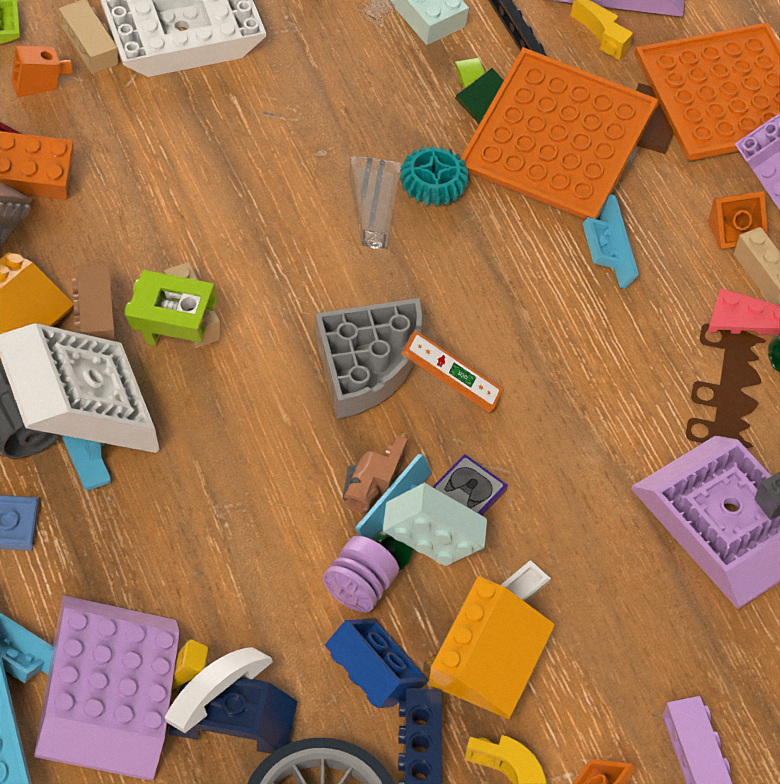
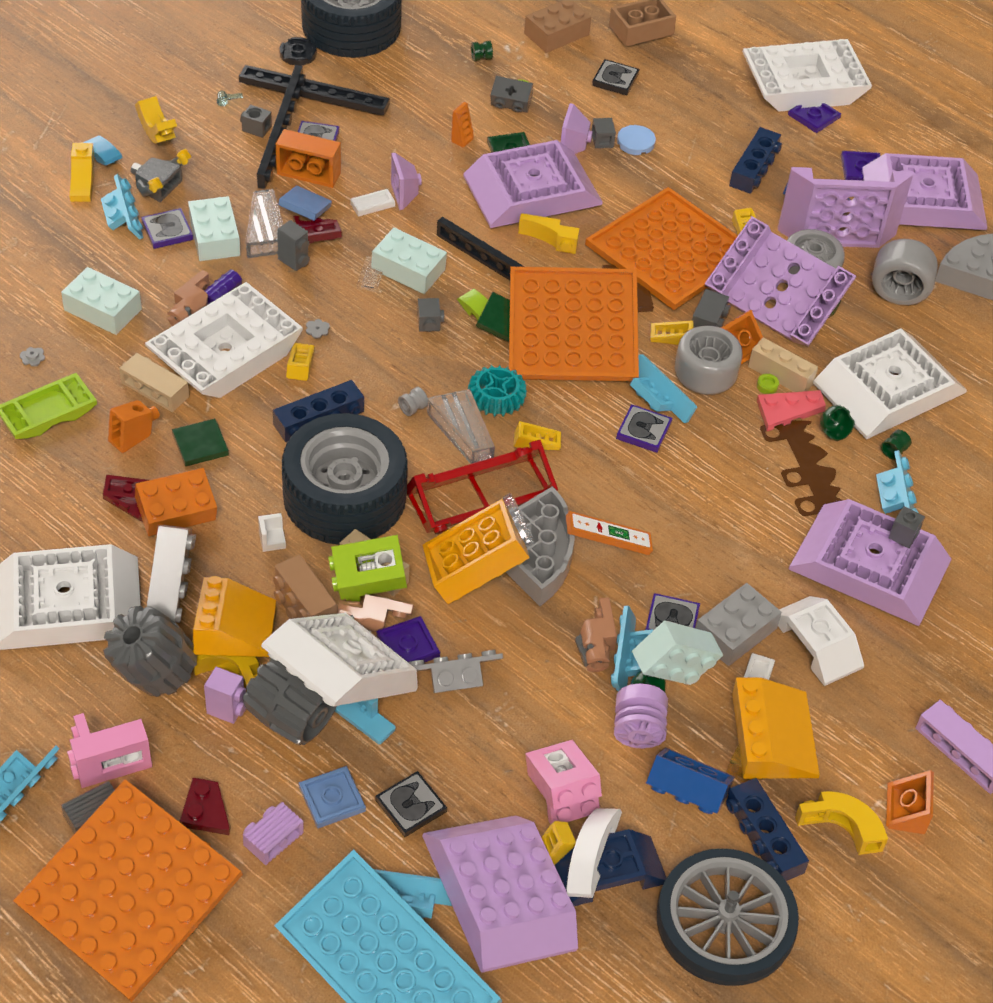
camera: 25 degrees left, 5 degrees down
(78, 563) = (411, 804): none -> tile
(98, 114) = (200, 442): none -> dark green tile
(109, 233) = (271, 532): none -> white panel
(156, 355) = (374, 611): none -> plate
(177, 401) = (410, 640): none -> dark purple tile
(204, 452) = (458, 673): none -> light grey bracket
(209, 205) = (344, 477): none -> black wheel
(234, 127) = (334, 400): none -> dark blue brick
(239, 606) = (565, 781): none -> bright pink brick
(247, 70) = (299, 363): none -> yellow slope
(289, 40) = (317, 328): none -> light grey plant
(293, 334) = (474, 552): none -> light orange slope
(337, 153) = (411, 402): none -> light grey wheel
(353, 250) = (421, 483): none -> red windscreen
(354, 317) = (518, 519): none -> clear tile
(413, 68) = (429, 314): none -> dark grey brick
(435, 243) = (528, 432): none -> yellow slope
(532, 523) = (740, 622): none -> light grey brick
(570, 276) = (644, 428): none -> tile
(614, 577) = (825, 636): none -> white slope
(682, 228) = (708, 360): none -> light grey wheel
(686, 187) = (676, 330): none -> yellow slope
(724, 177) = (711, 309): none -> dark grey brick
(741, 281) = (767, 384): none -> lime tile

